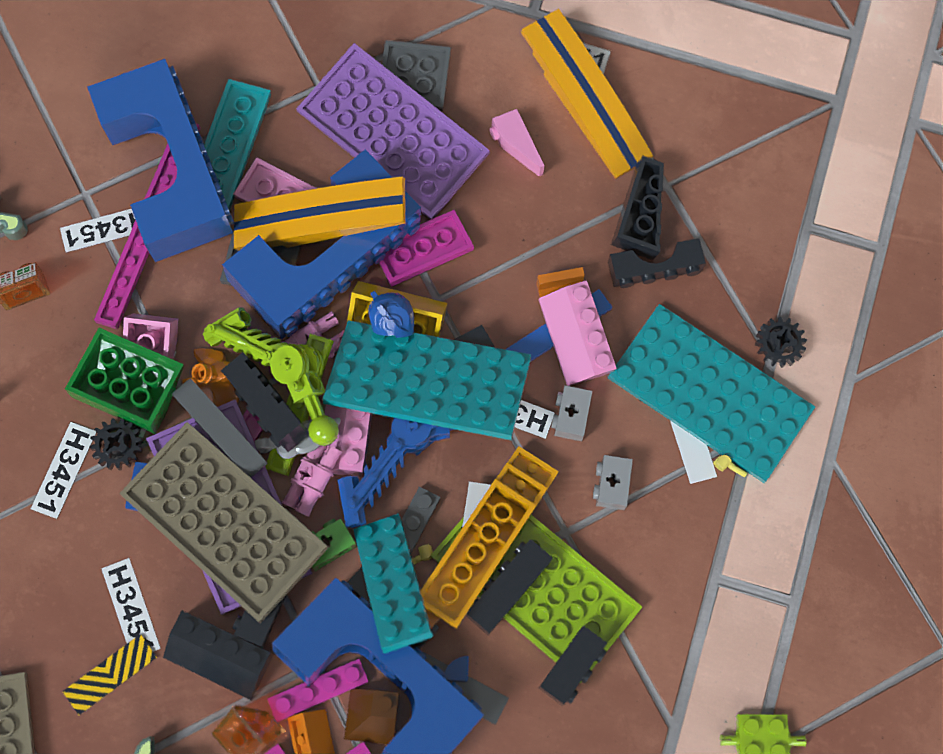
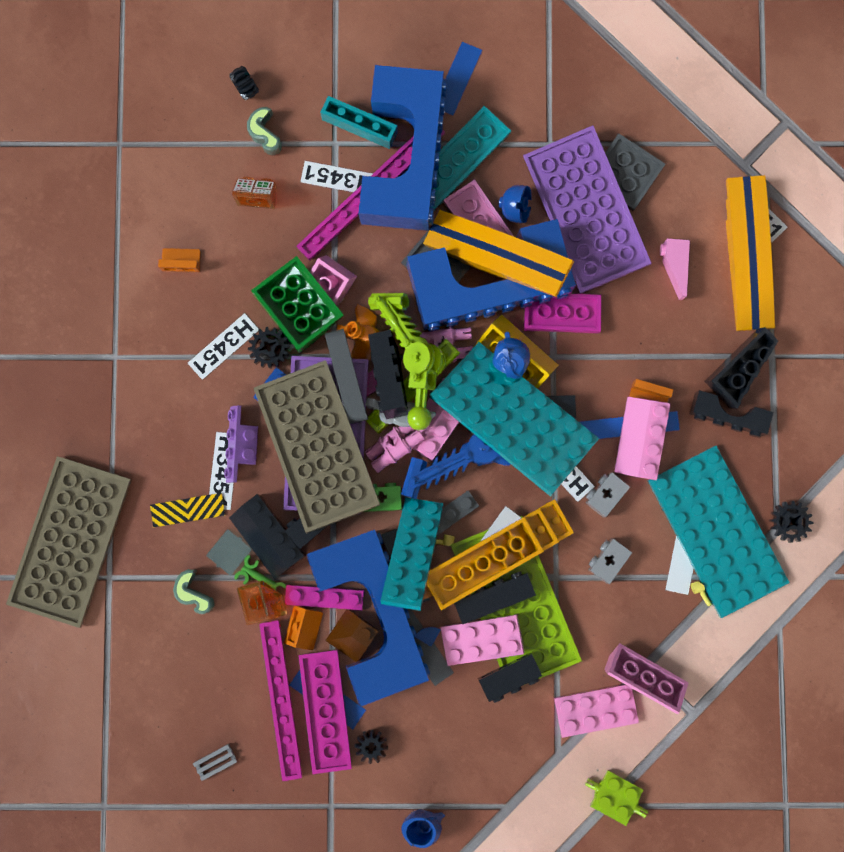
camera: 30 degrees right, 10 degrees up
(100, 158) = (359, 122): none -> teal brick
(136, 566) = (241, 444): none -> medium lavender bracket
(182, 697) = (229, 552): none -> clear light blue piece
(186, 62) = (459, 75): none -> blue sticker
(215, 705) = (247, 570): none -> bright green bar
(313, 160) = (515, 203): none -> blue cylinder
(520, 642) = (482, 640): none -> bright pink plate
(687, 654) = (596, 710): none -> bright pink plate
(722, 585) = (646, 678): none -> bright pink slope

